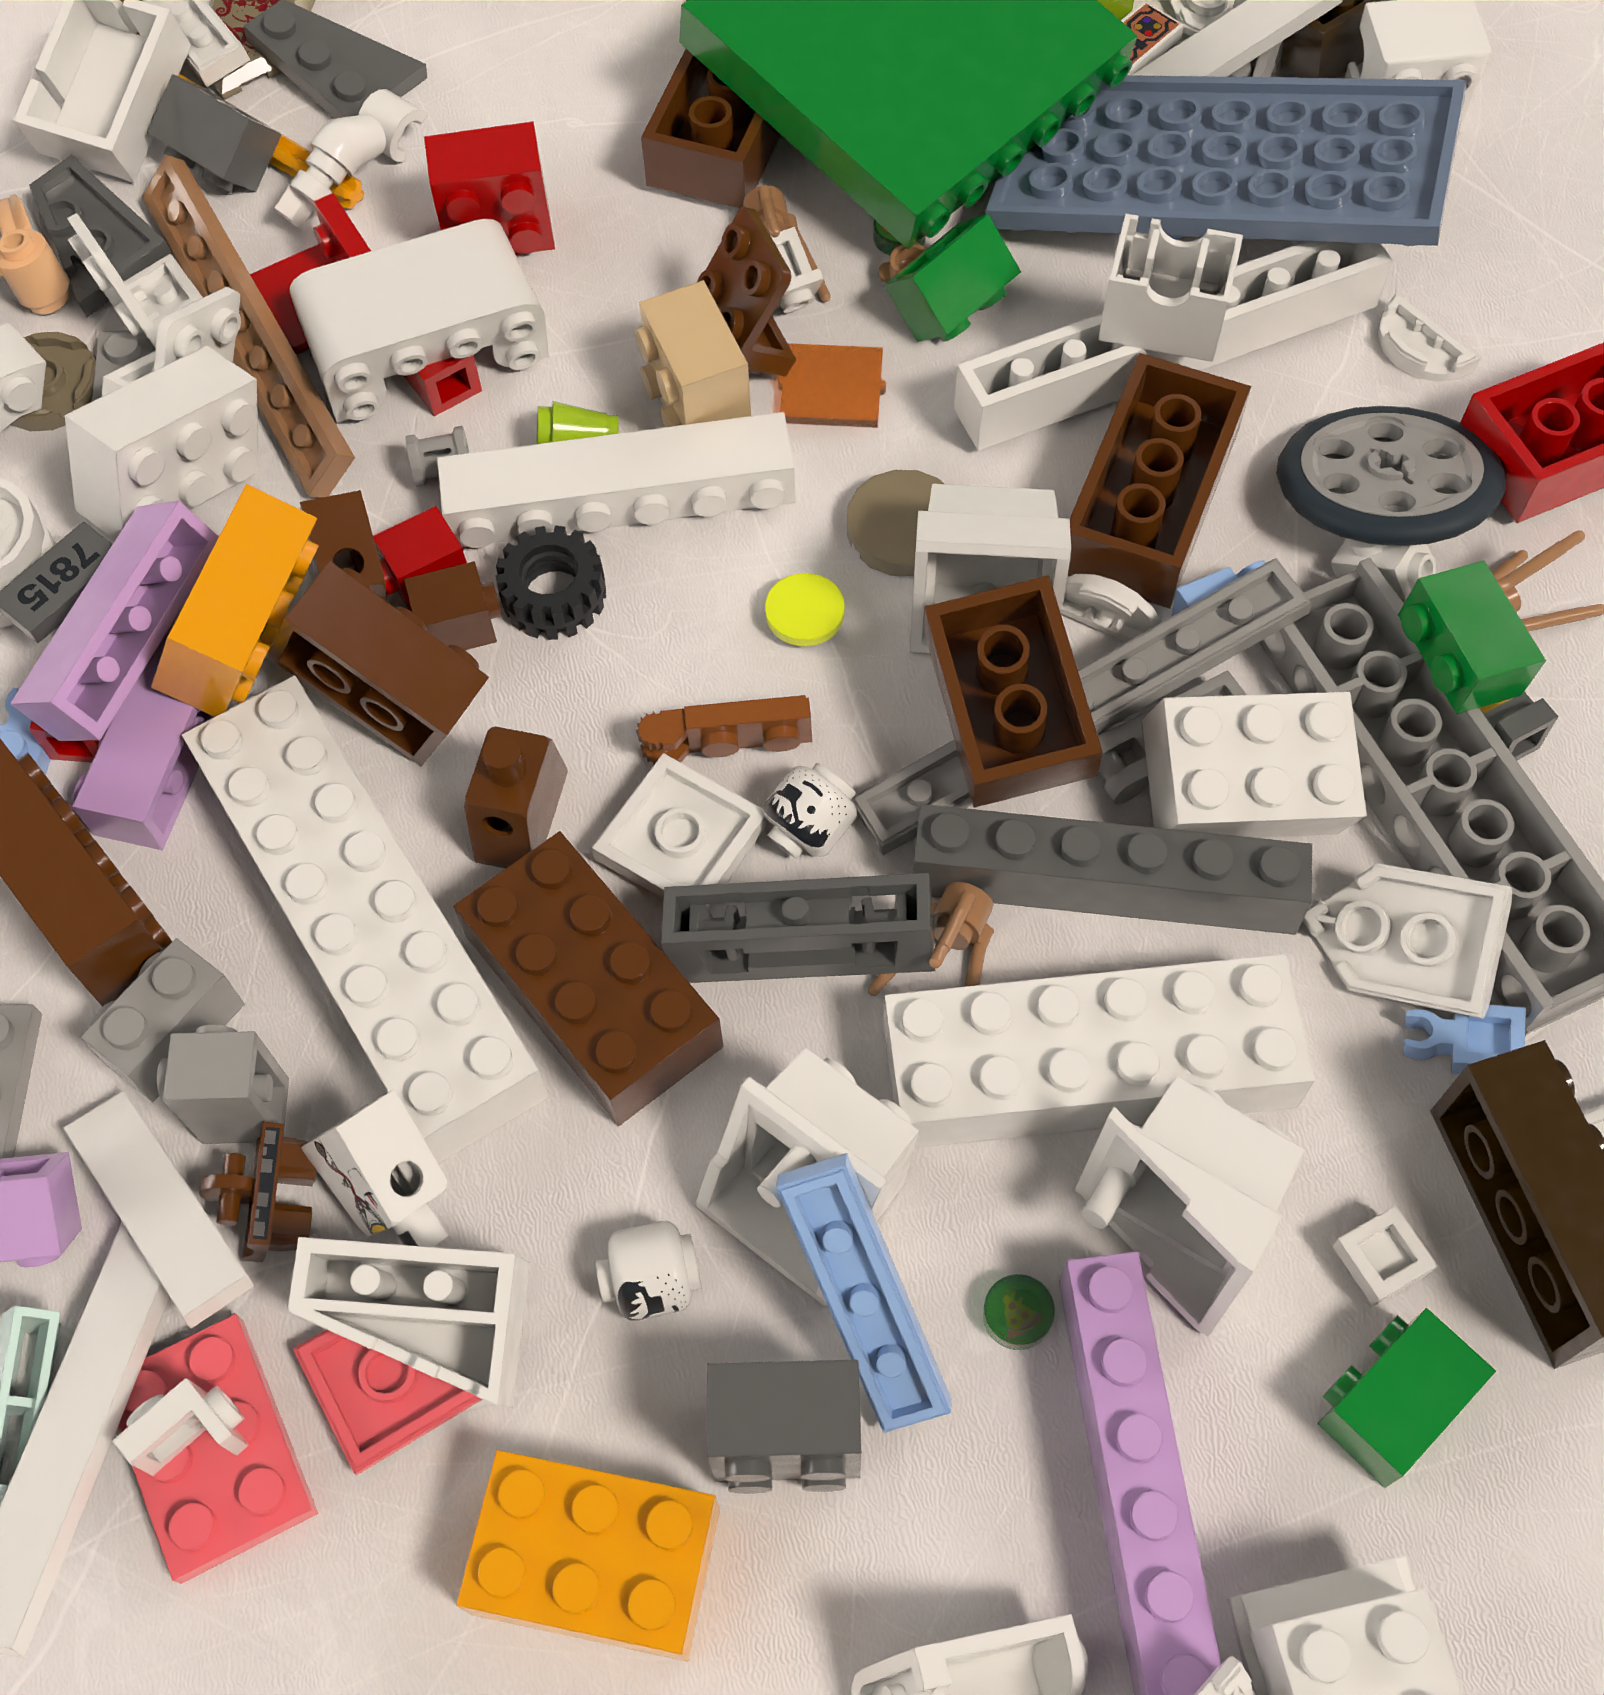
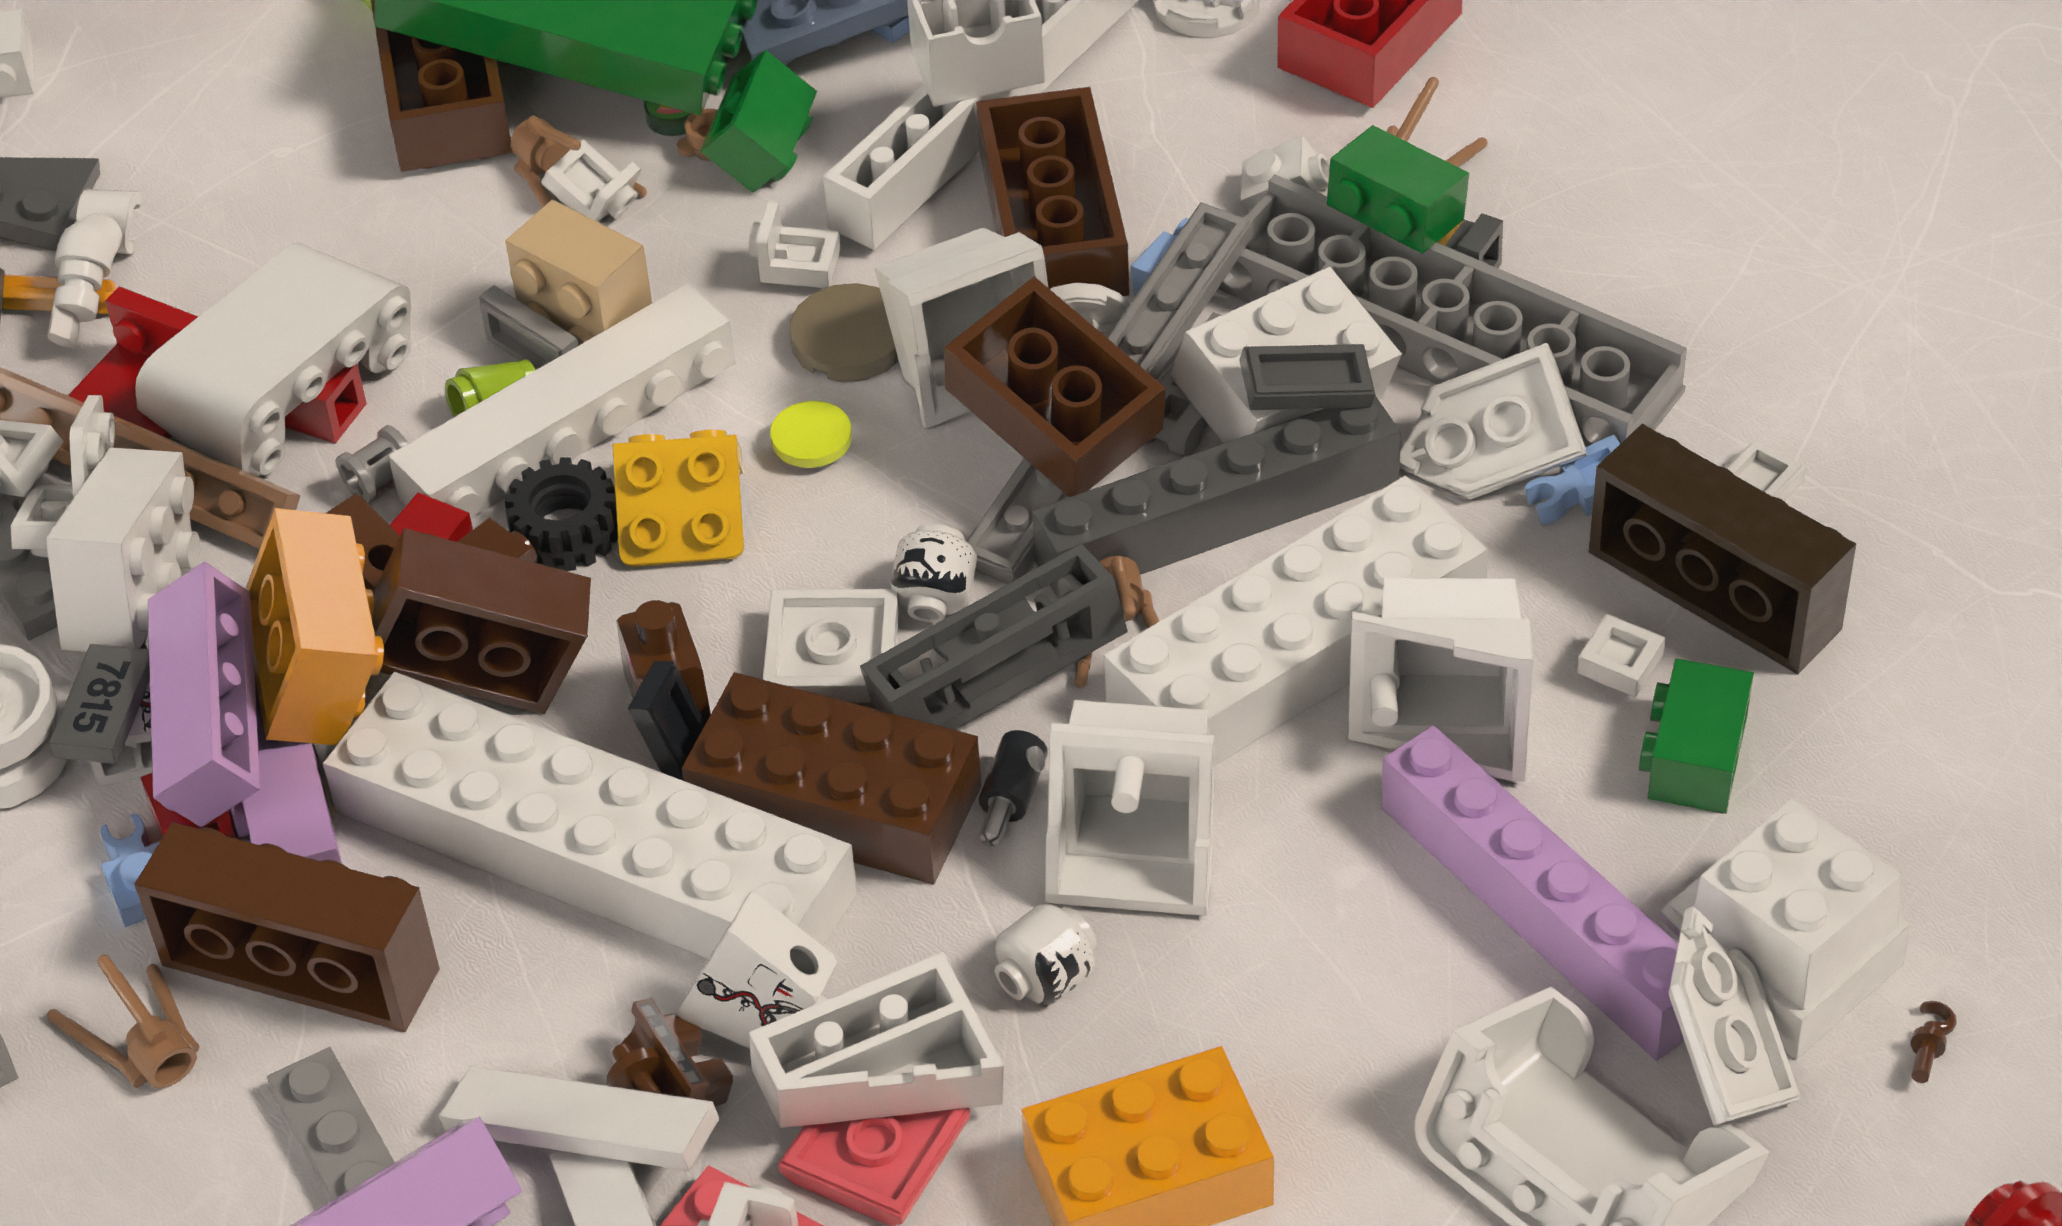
camera: 30 degrees left, 15 degrees down
(170, 996) = (469, 990): light grey brick -> none
(223, 1084) = (577, 994): light grey brick -> none
(471, 845) = (666, 717): none -> black tile
(492, 177) = (261, 212): red brick -> none
(631, 385) = (522, 330): none -> light grey tile
(650, 617) = (679, 498): none -> yellow bracket
(726, 727) = (813, 546): dark orange hinge -> none
(747, 285) = (588, 179): reddish brown bracket -> none
(752, 1053) = (1010, 782): none -> black piece
(784, 1424) = (1240, 975): dark grey brick -> none
(833, 386) = (704, 253): clear orange piece -> none
(864, 1292) = (1243, 848): light blue tile -> none
(901, 420) = (793, 253): none -> white bracket
(1018, 1312) = (1364, 839): clear green tile -> none
(1249, 805) = (1307, 377): none -> dark grey tile
(1390, 475) = (1246, 111): wedge -> none

